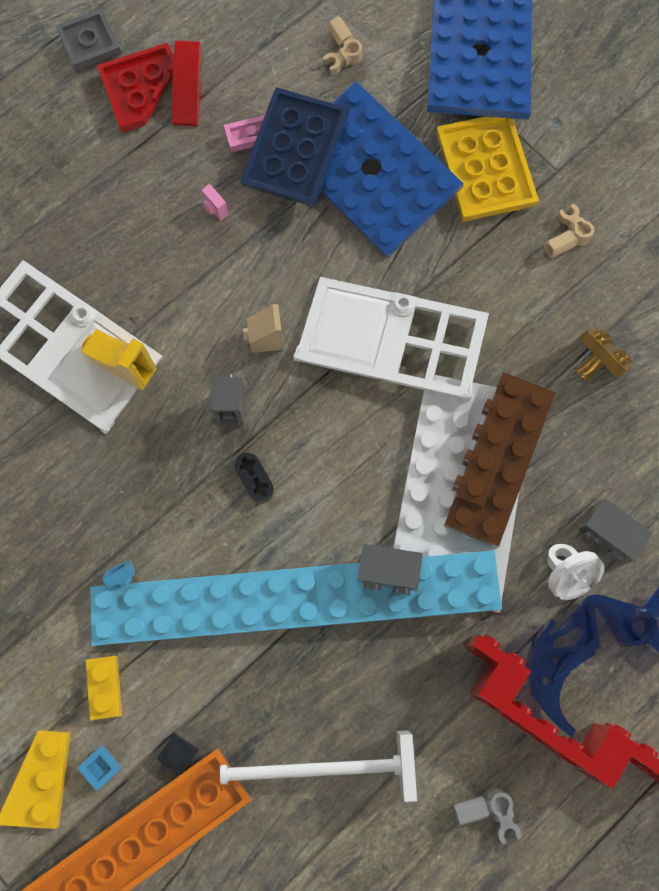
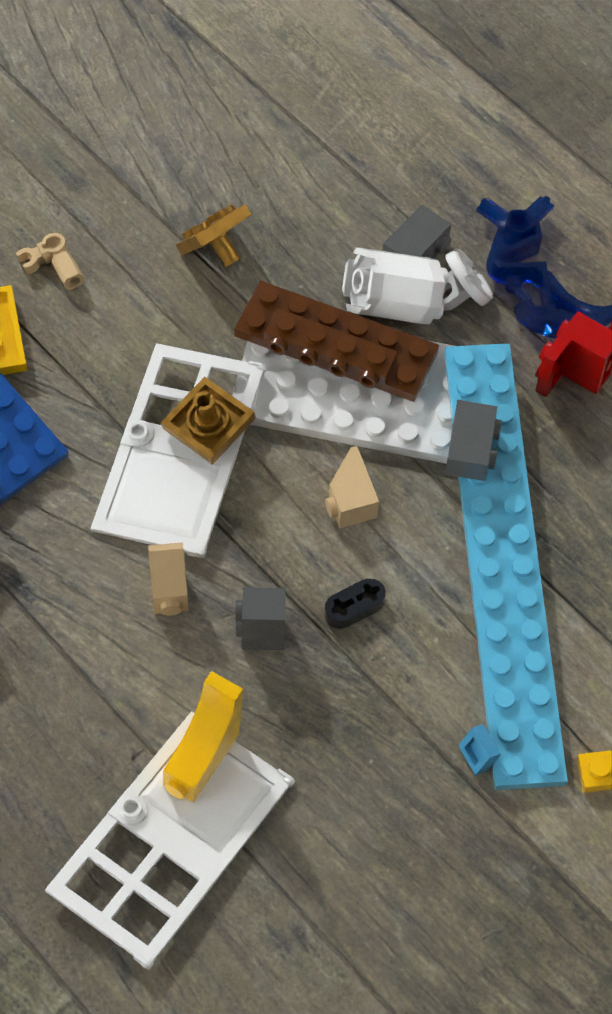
camera: 90 degrees left, 15 degrees down
(354, 473) = (352, 492): none -> tan slope
(410, 353) = (208, 420): none -> pearl gold plate
(559, 508) = (395, 286): none -> white brick

